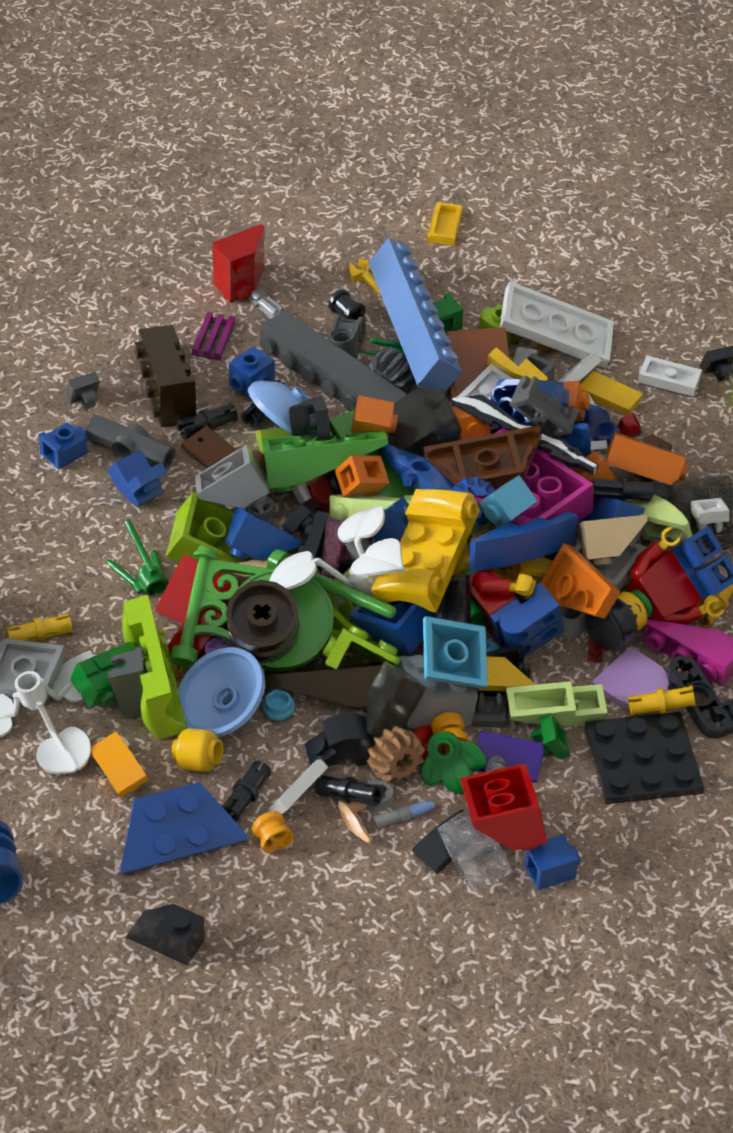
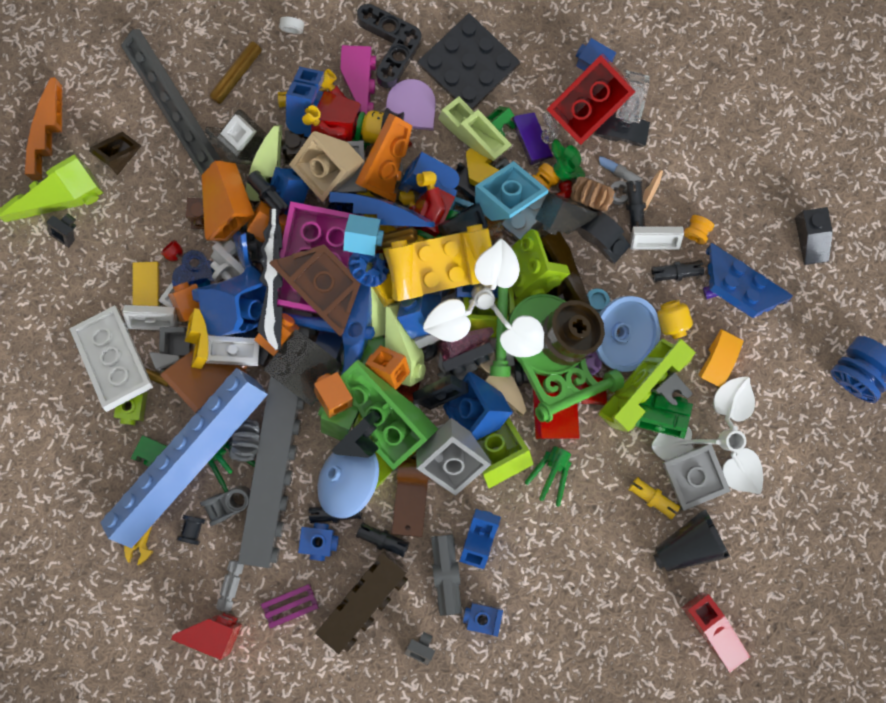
camera: 125 degrees left, 35 degrees up
(445, 223) = (35, 529): yellow tile -> none
(542, 409) = (247, 275): dark grey hinge -> none
(661, 701) = (425, 70): yellow pin -> none
(670, 376) = (100, 256): white plate -> none

